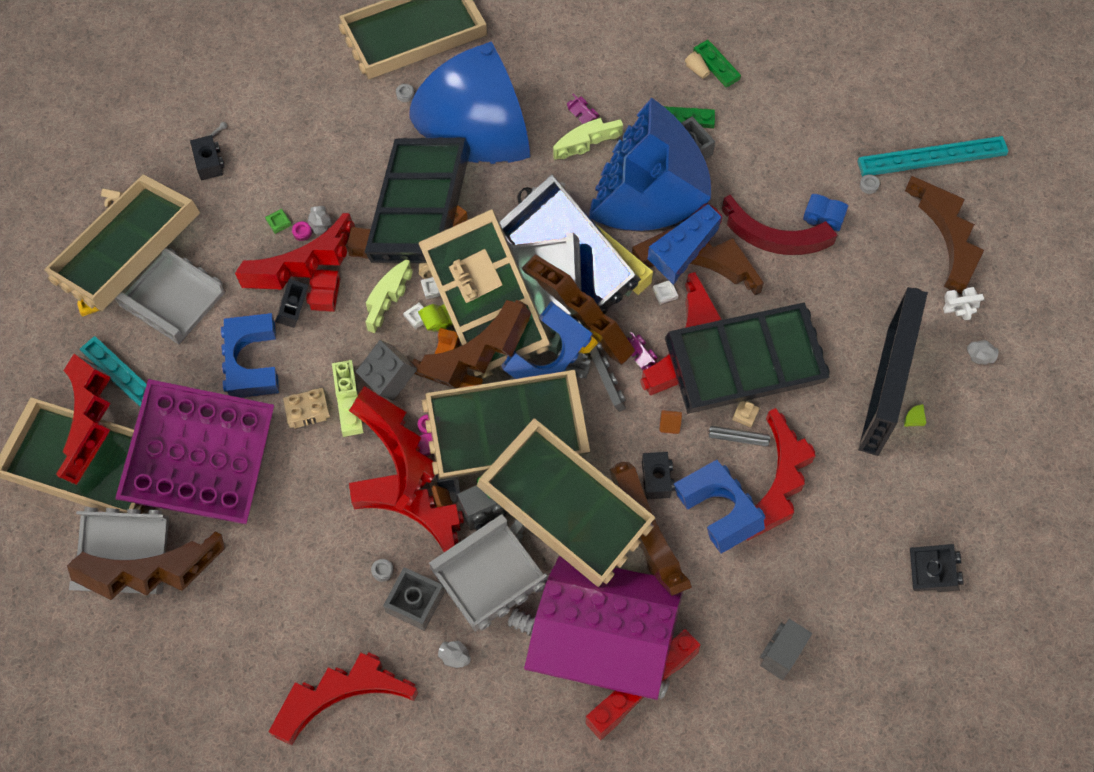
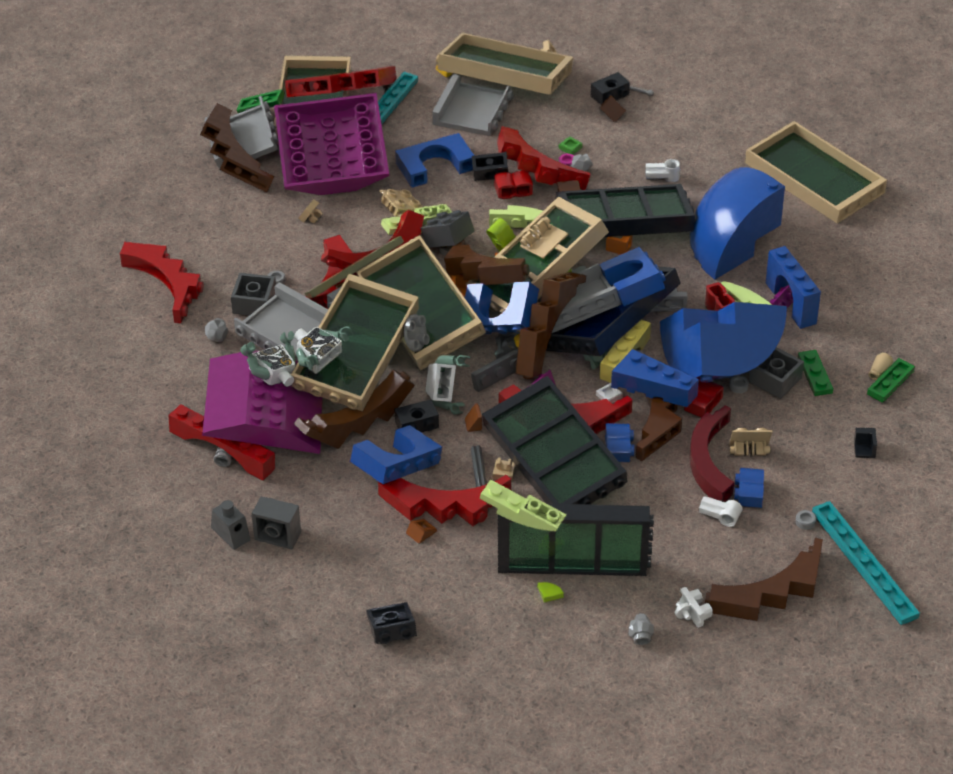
camera: 75 degrees right, 20 degrees down
(66, 517) = (273, 98): none -> green plate
(239, 165) = (612, 109): none -> reddish brown panel
(285, 507) = (310, 211): none -> tan tile
(358, 150) = (668, 170): none -> white piece
(431, 477) = (354, 267): none -> olive tile
(524, 206) = (633, 275): none -> blue arch
(566, 86) = (785, 271): none -> blue arch
(566, 438) = (415, 332): none -> light grey dish
(577, 160) = (717, 297): none -> red brick
(581, 592) = (272, 364): none -> torso
(585, 540) = (319, 346): none -> torso
(620, 435) = (441, 381): none -> white torso
(738, 301) = (618, 441): none -> blue brick
(770, 700) = (225, 520): none -> dark grey torso
(771, 194) = (743, 437): none -> tan hinge
(792, 107) = (865, 442): none -> black panel
(809, 511) = (420, 530): none -> dark orange slope
(849, 242) = (726, 512): none -> white piece
(901, 394) = (522, 510): none -> yellowish green slope

